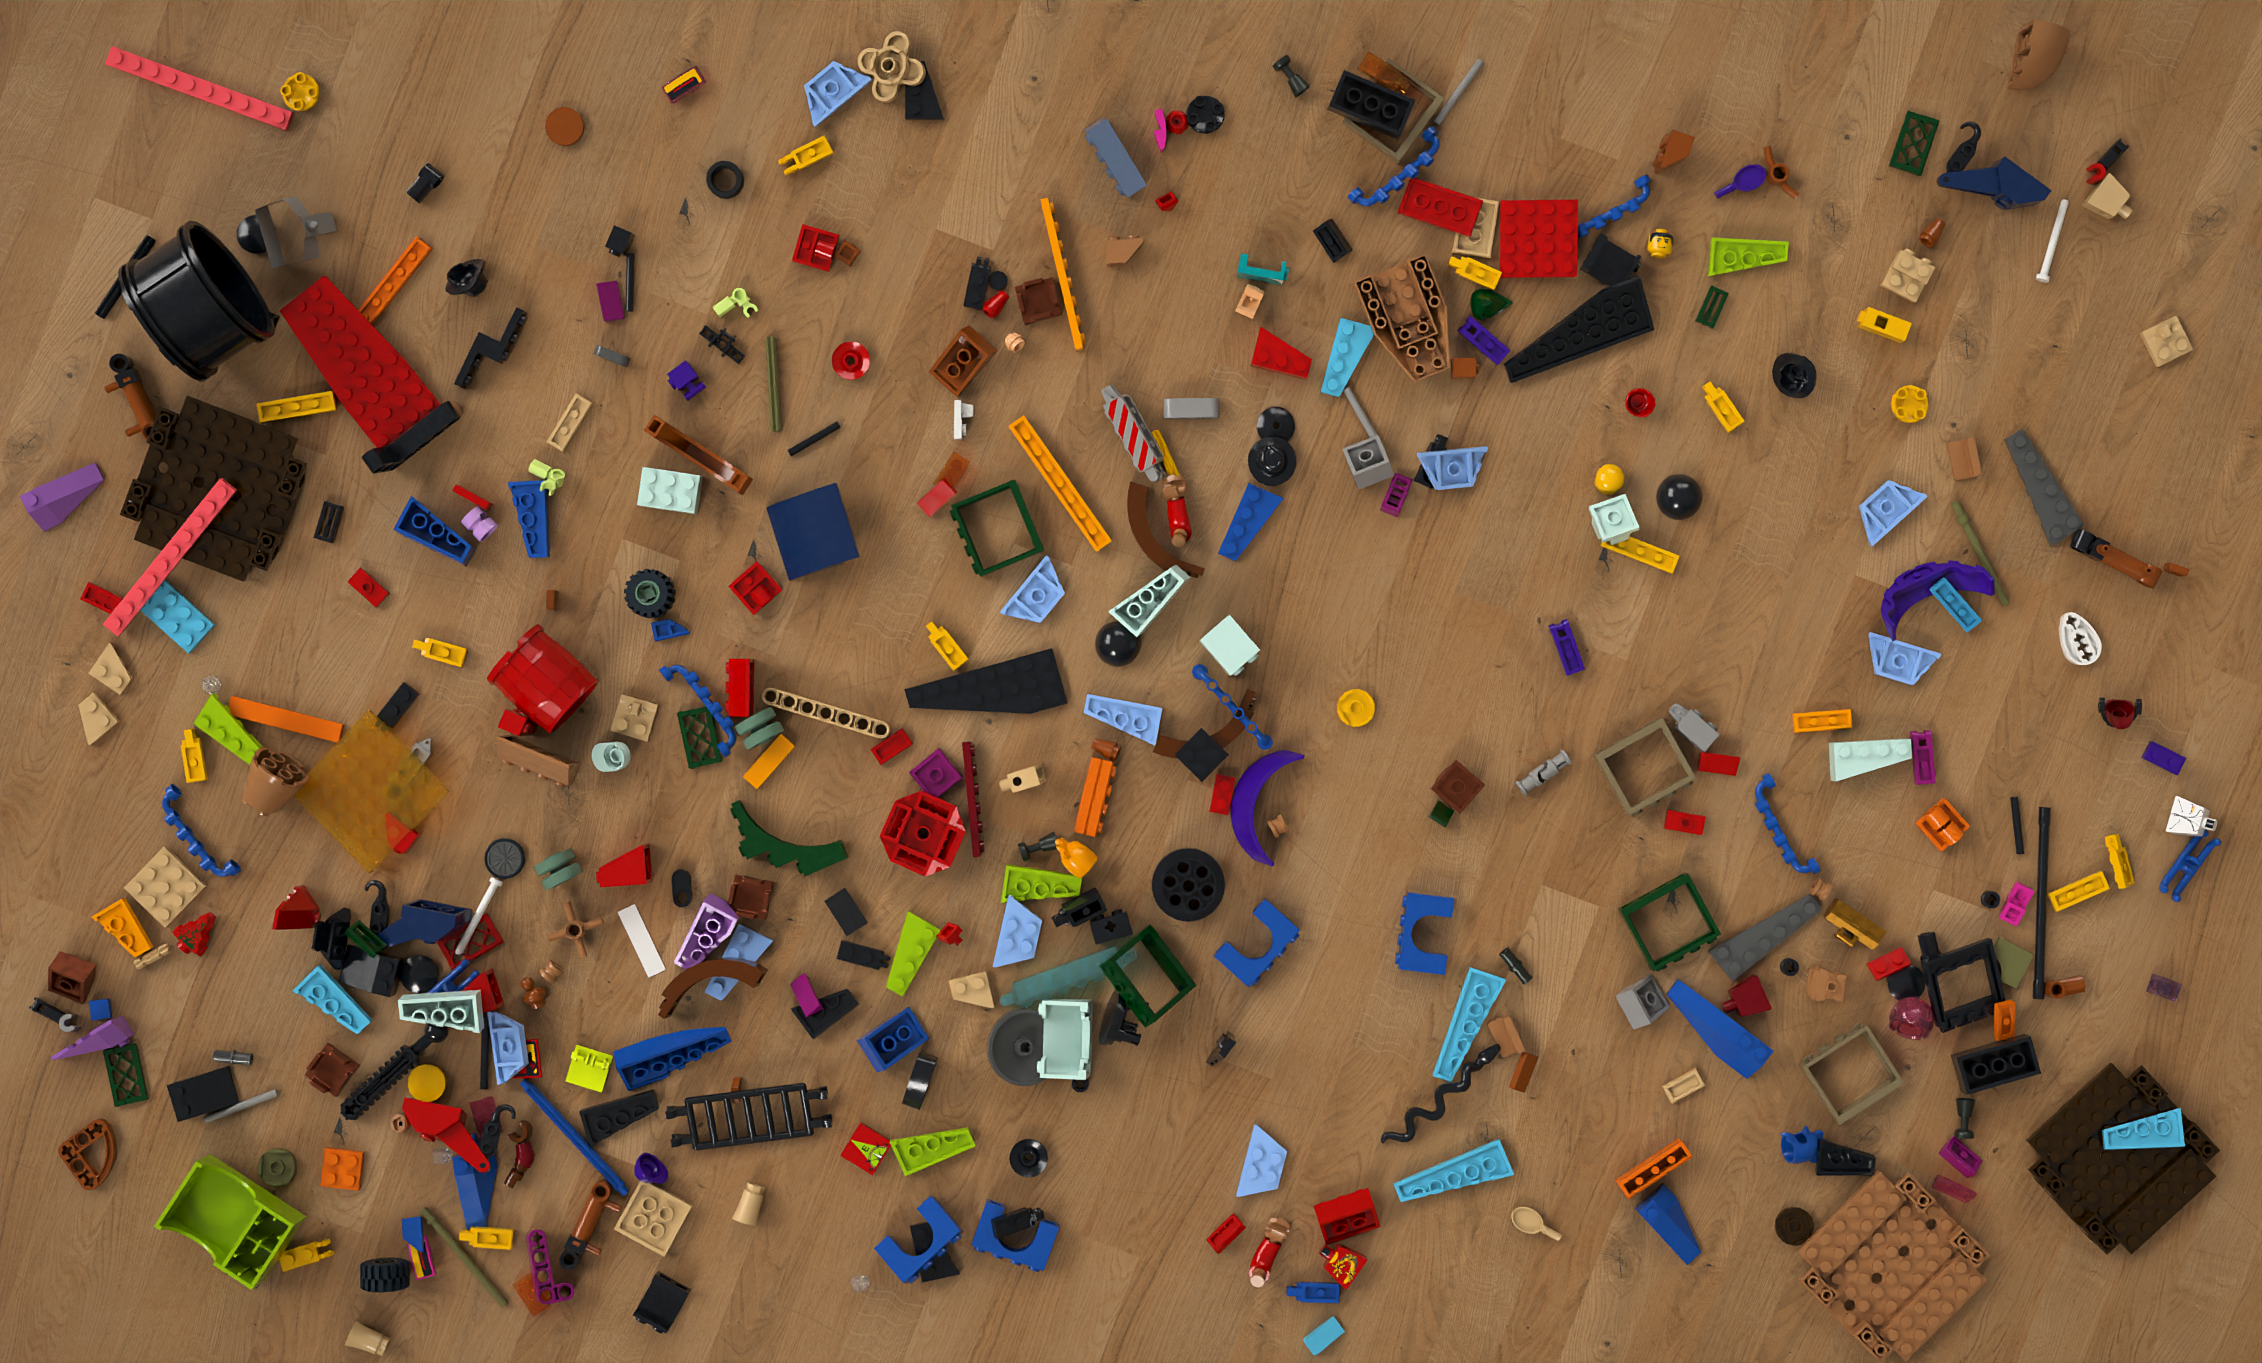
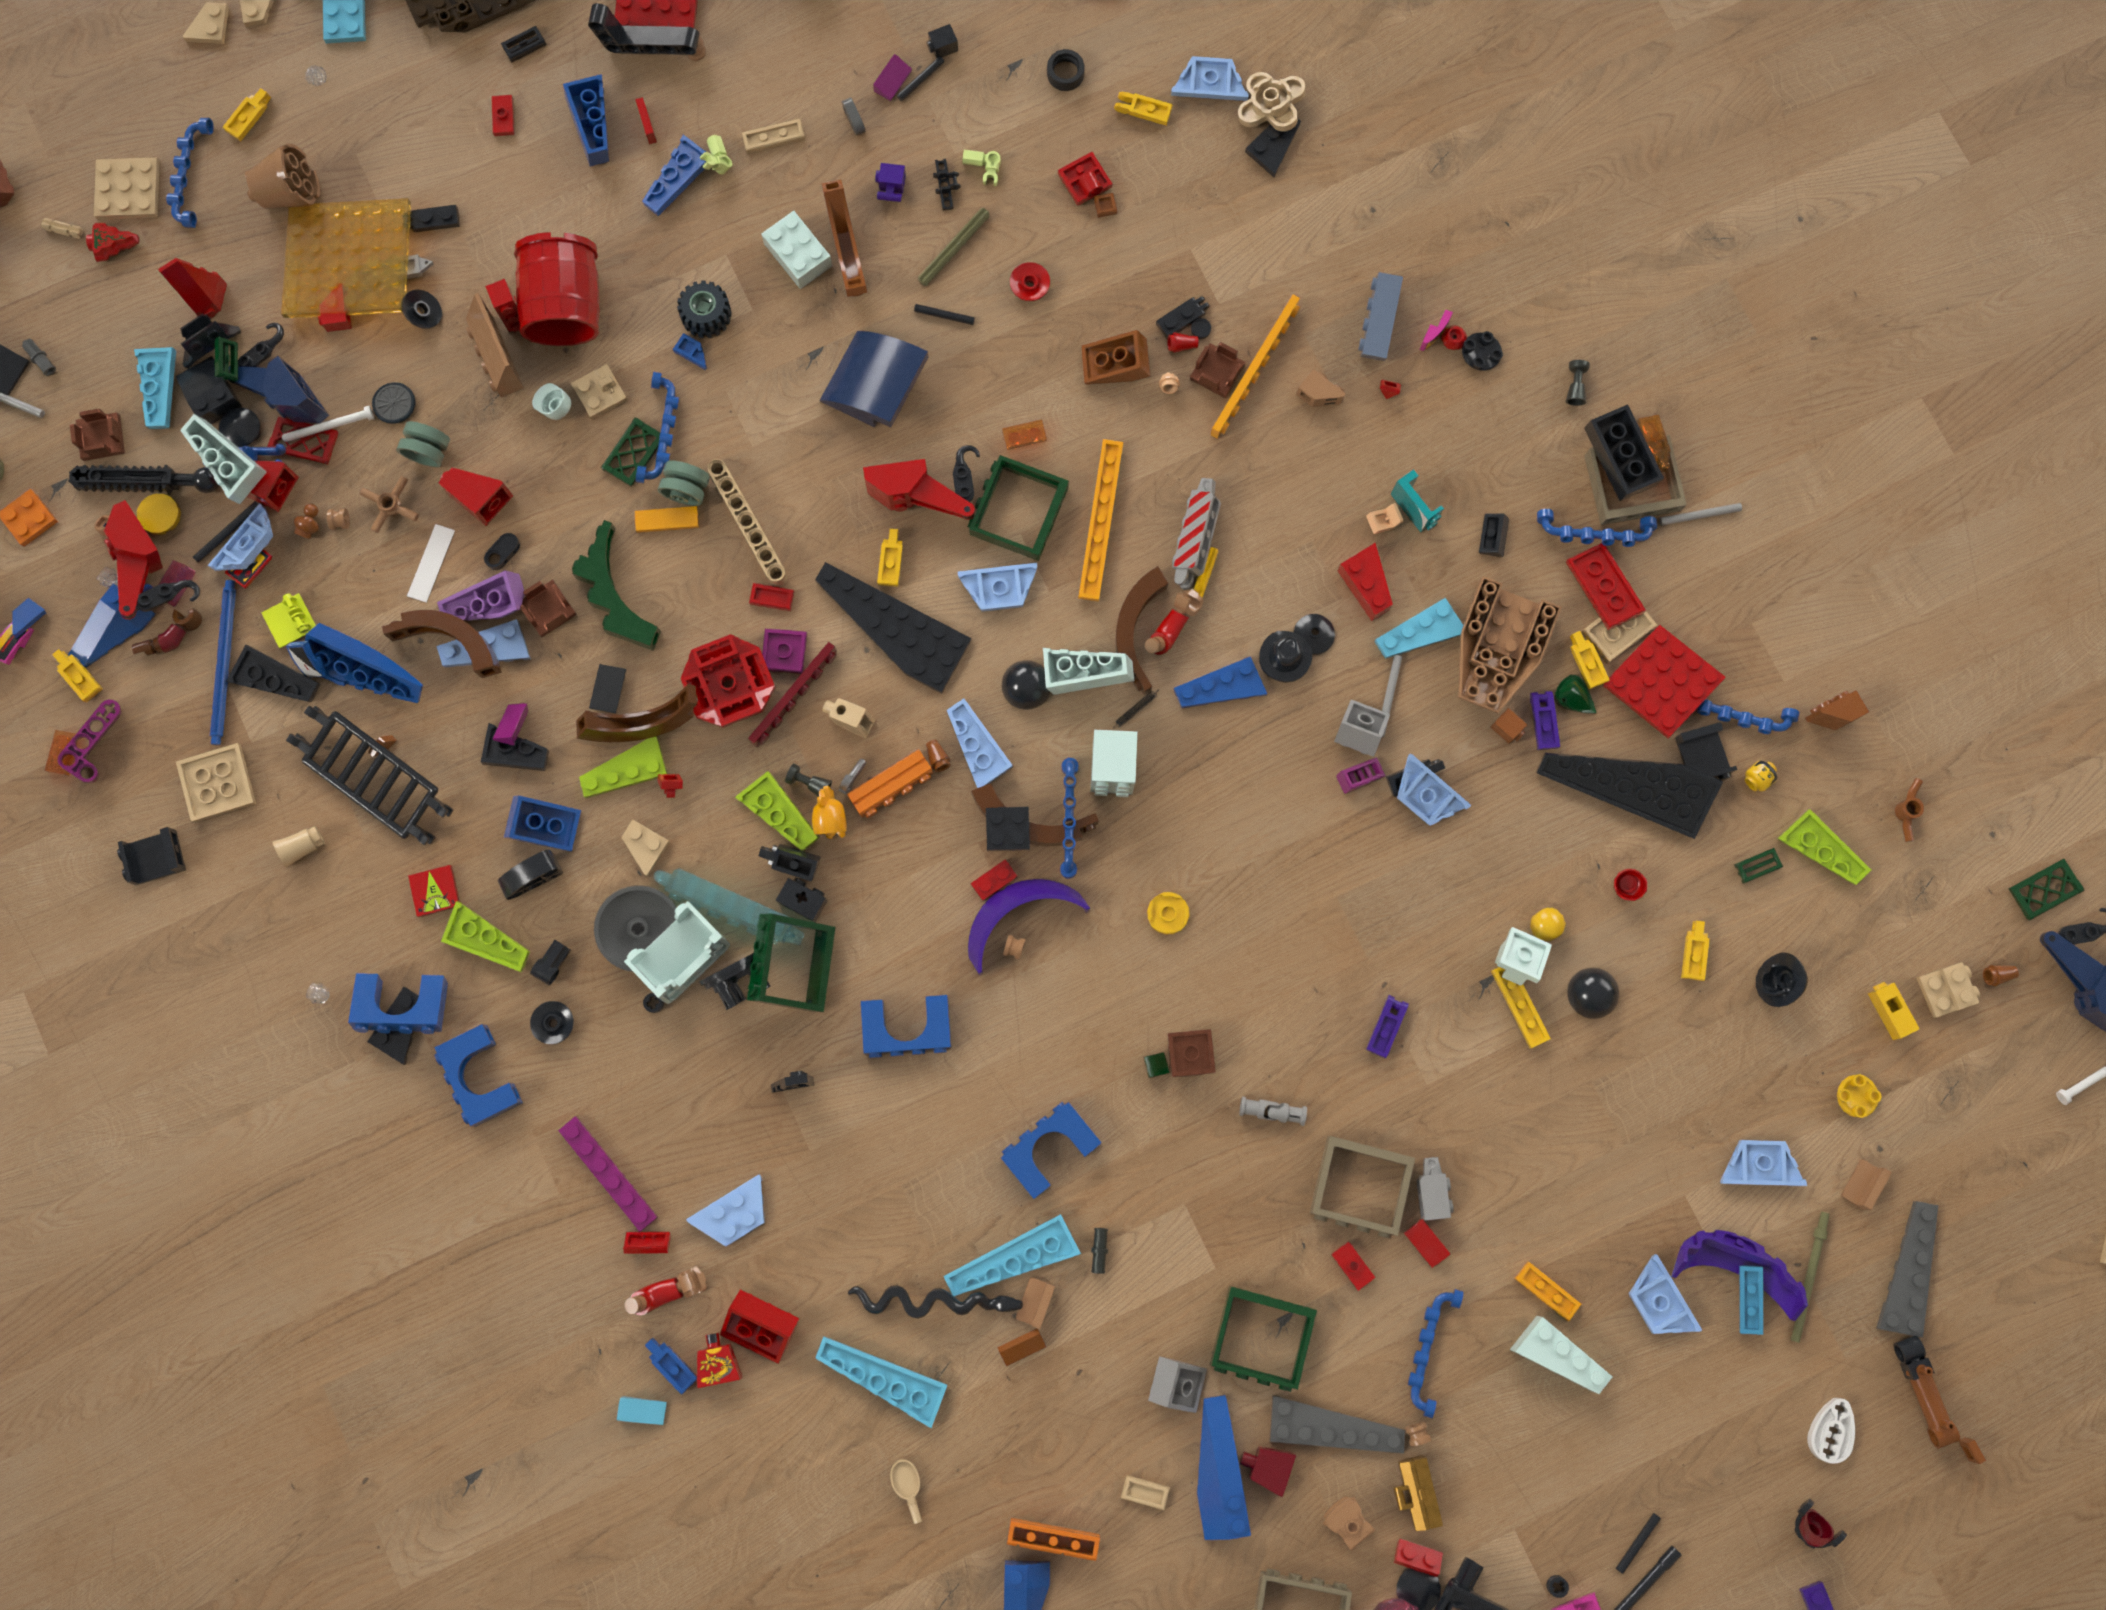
camera: 35 degrees right, 10 degrees down
(125, 926) = (67, 184): light orange wing -> none
(223, 727) = (291, 112): lime wing -> none
(285, 719) = (342, 150): orange tile -> none
(442, 651) = (507, 209): yellow hinge -> none
(458, 770) = (426, 304): none -> black dish
(463, 1256) = (50, 622): olive bar -> none
(479, 523) = (631, 142): lavender wheel -> none
(491, 348) = (769, 29): black bracket -> none
(551, 599) = (627, 247): dark orange tile -> none
(580, 1237) = (140, 745): dark orange piece -> none
(631, 1084) = (305, 660): none -> slope
(650, 1169) = (252, 742): dark purple hat -> none
(740, 687) = (703, 440): red slope -> none
(755, 588) = (788, 380): red plate -> none
(862, 955) = (589, 748): black hinge -> none
(892, 916) = (640, 725): none -> reddish brown arch
(913, 582) = (908, 484): none -> red slope
(936, 497) = (995, 440): red tile -> none
(961, 411) = (1074, 395): white hinge -> none
(989, 1125) = (547, 968): none -> black piece
(1015, 1221) = (488, 1063): black hinge -> none
(1017, 934) = (723, 834): light blue wing -> none
(1064, 815) = (847, 782): none -> flat silver bar
(1158, 1215) = (608, 1173): none -> magenta plate
(1168, 867) = (896, 953): black wheel -> none
(1191, 408) = (1259, 557): light grey beam -> none
(1206, 592) = (1124, 720): none -> black piece
(1745, 180) = (1876, 790): dark purple piece -> none
(1784, 969) = (1336, 1480): black bush -> none
(1923, 758) = (1607, 1405): magenta plate -> none
(1942, 825) = (1573, 1479): orange plate -> none

